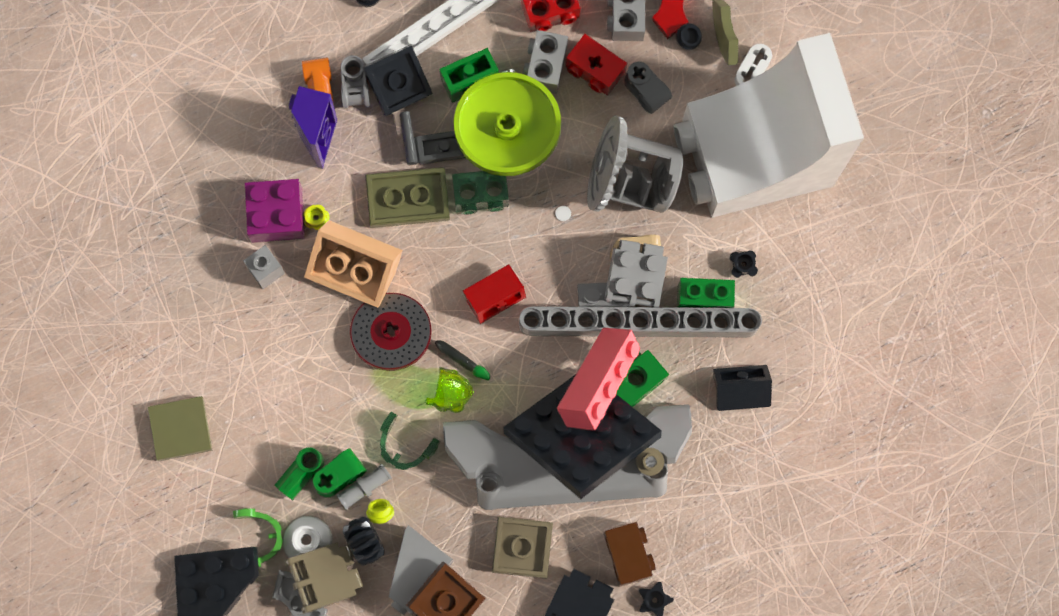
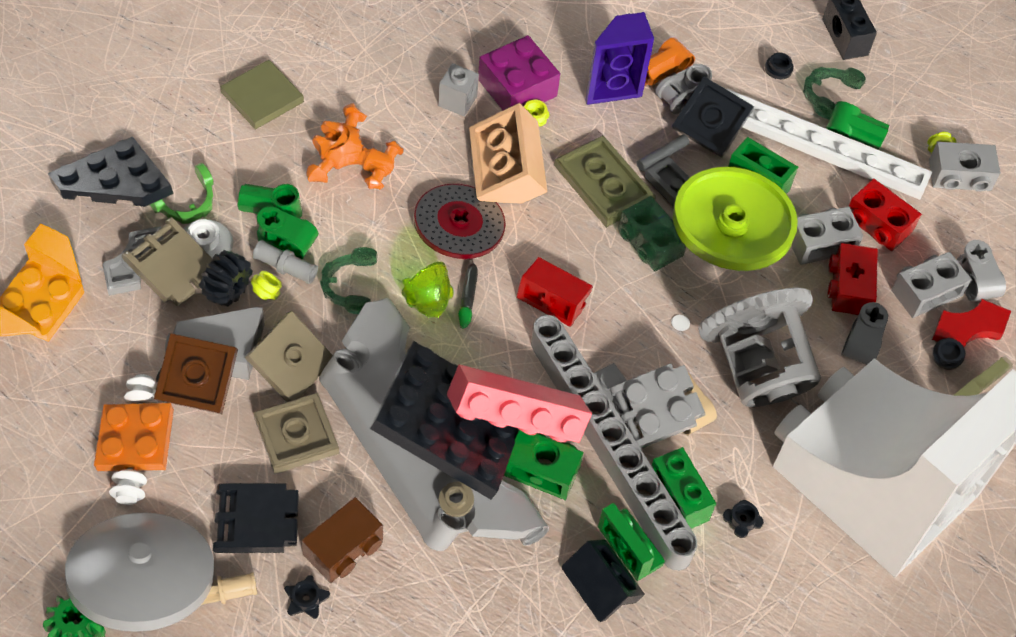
camera: 60 degrees right, 20 degrees down
(275, 388) = (344, 148): none -> orange piece
(459, 523) = (289, 357): none -> dark tan plate
(727, 353) = (629, 541): none -> green bracket

